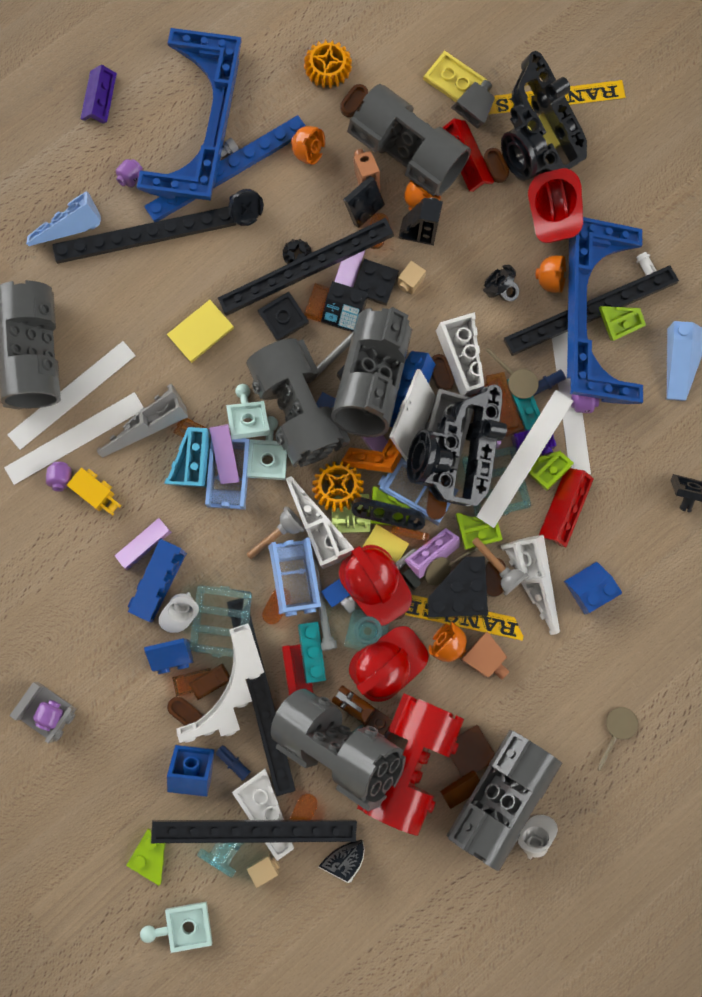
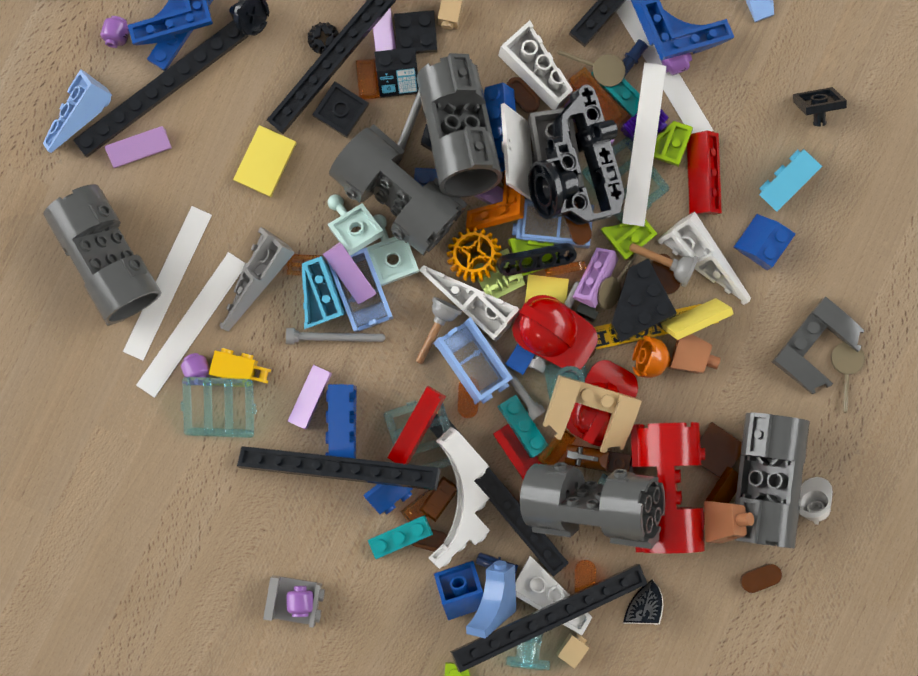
camera: 20 degrees left, 5 degrees up
(78, 501) = (208, 430): none -> clear light blue bar
(102, 273) = (138, 147): none -> lavender slope
(136, 615) = (339, 468): none -> black plate
(154, 486) = (294, 336): none -> light grey piece
(161, 699) = (400, 537): none -> teal plate
(178, 613) = (378, 443): white piece -> none
(216, 795) = (497, 600): none -> medium blue arch
(218, 610) = (416, 426): none -> red panel
(331, 684) = (556, 449): none -> clear orange tile
(402, 673) = (622, 406): none -> tan wedge
(447, 818) = (725, 521): none -> nougat torso
(458, 884) = (761, 578): none -> reddish brown tile
(504, 628) = (697, 318): none -> light yellow tile
(572, 699) = (823, 316): none -> dark grey wedge
(637, 544) = (789, 179): none -> medium azure wedge

